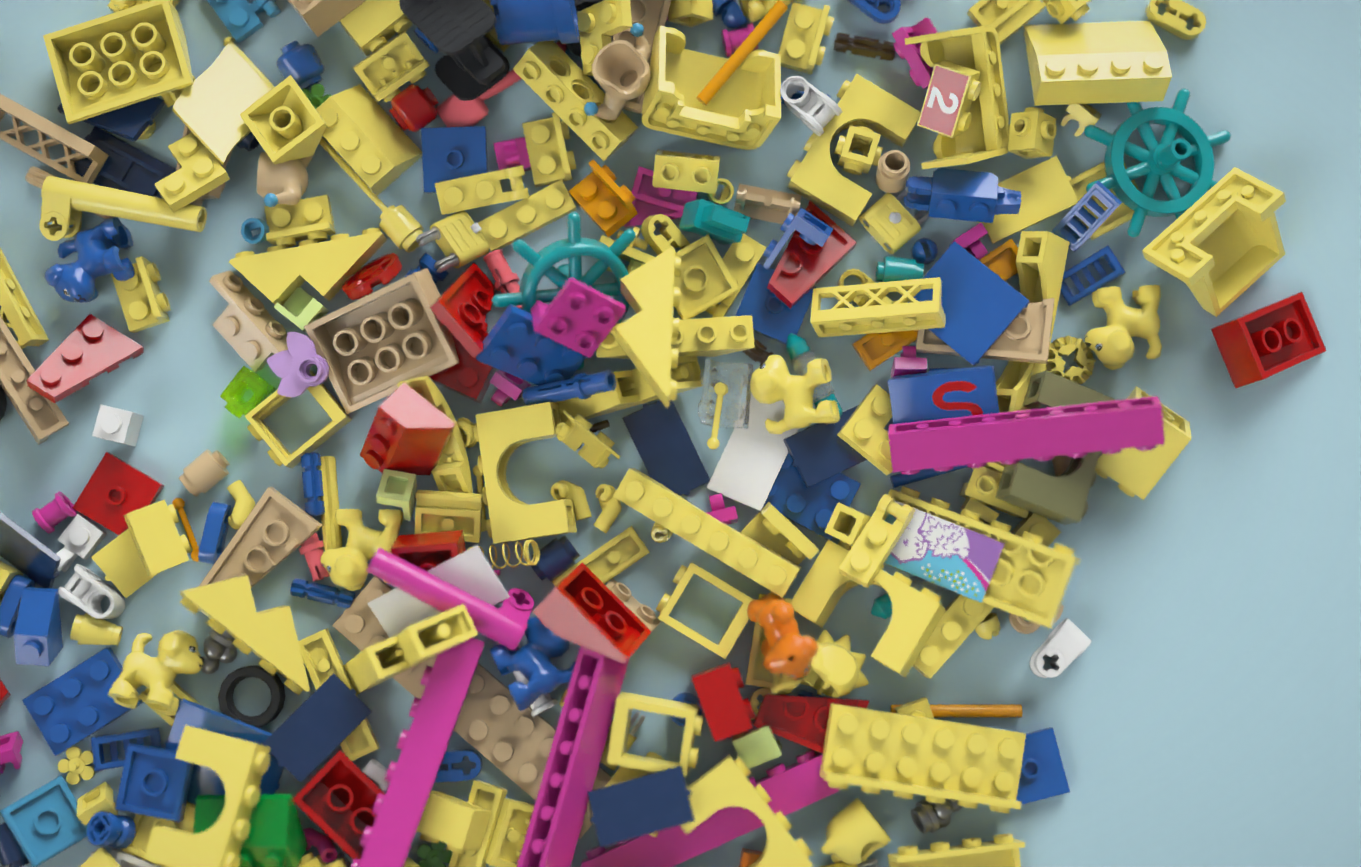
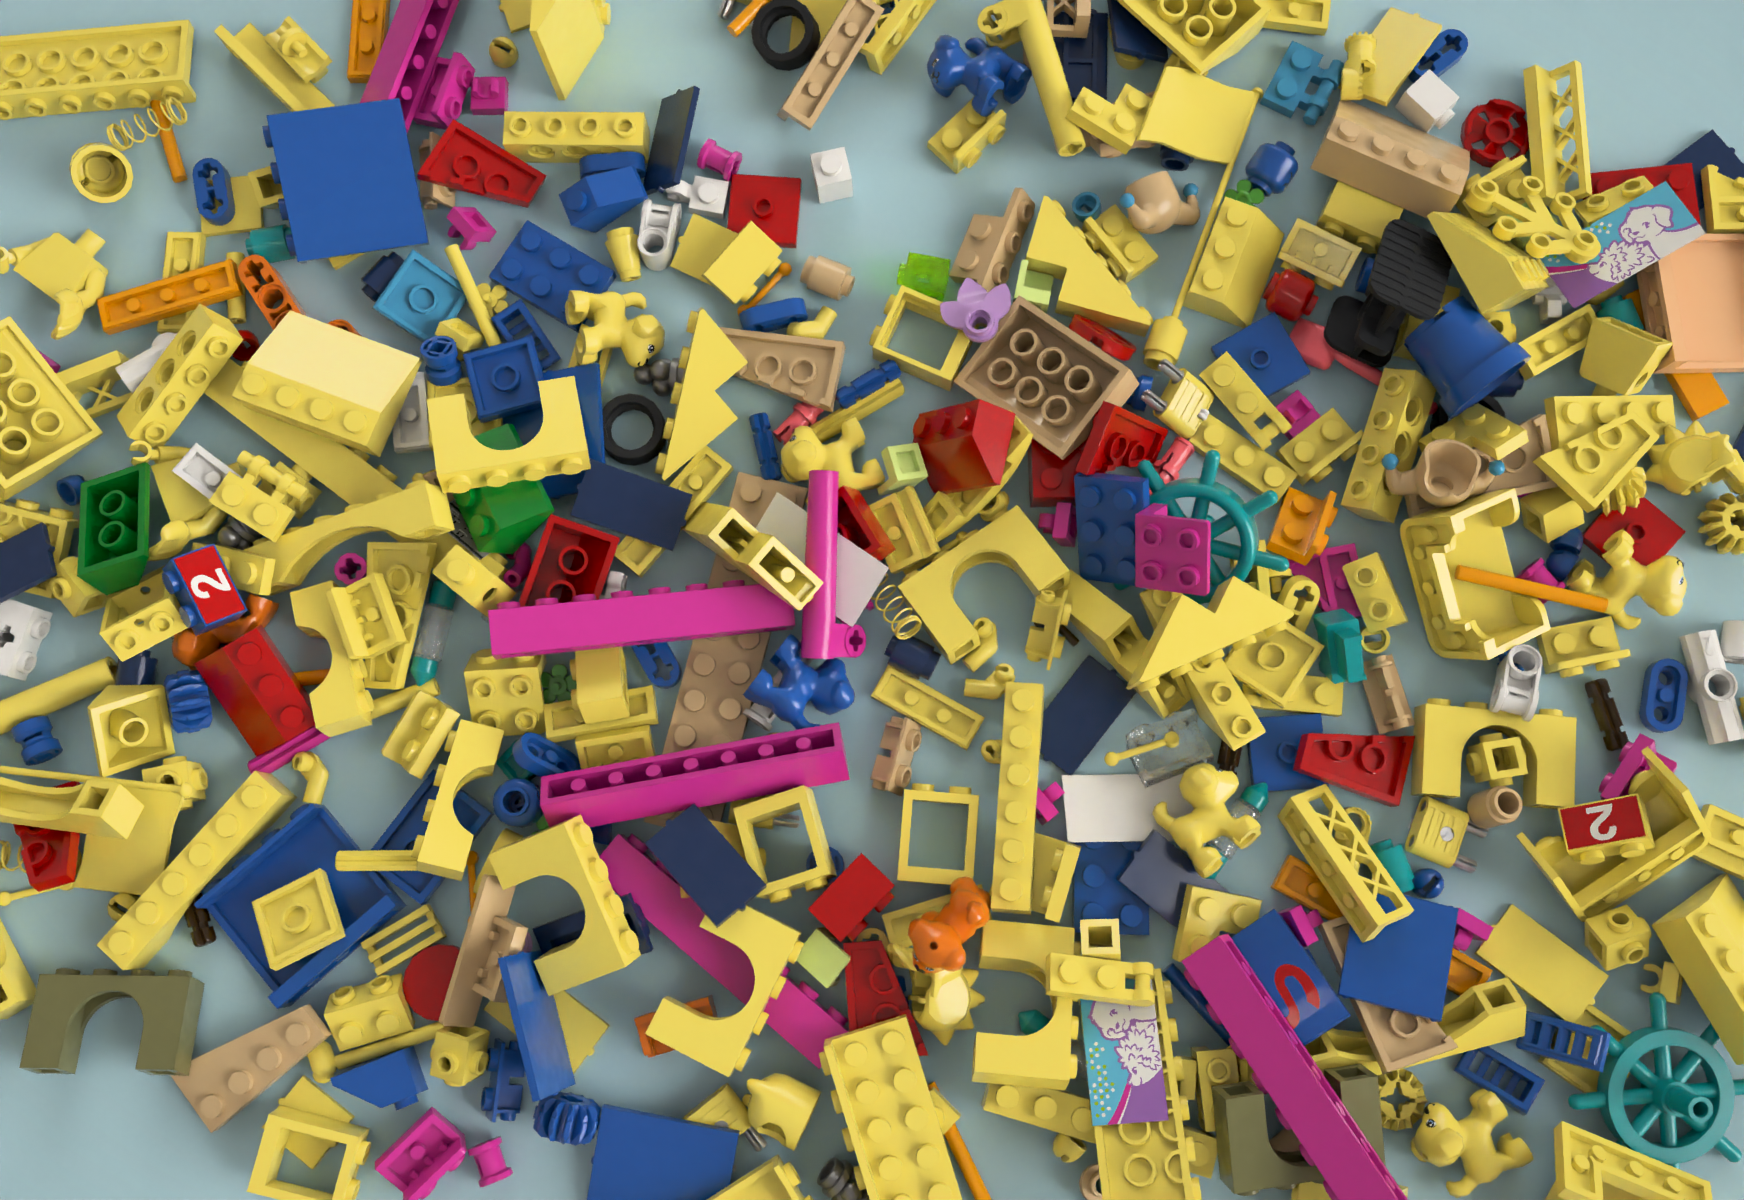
camera: 70 degrees right, 5 degrees down
(66, 777) = (472, 295): none -> light yellow bar
(81, 357) = (880, 108): wing -> none
(285, 122) = (1209, 178): light yellow slope -> none
(580, 387) = (1100, 593): blue pin -> none
(592, 616) = (874, 718): red slope -> none
(810, 228) = (1386, 751): bracket -> none
(961, 195) = (1510, 893): blue hinge -> none

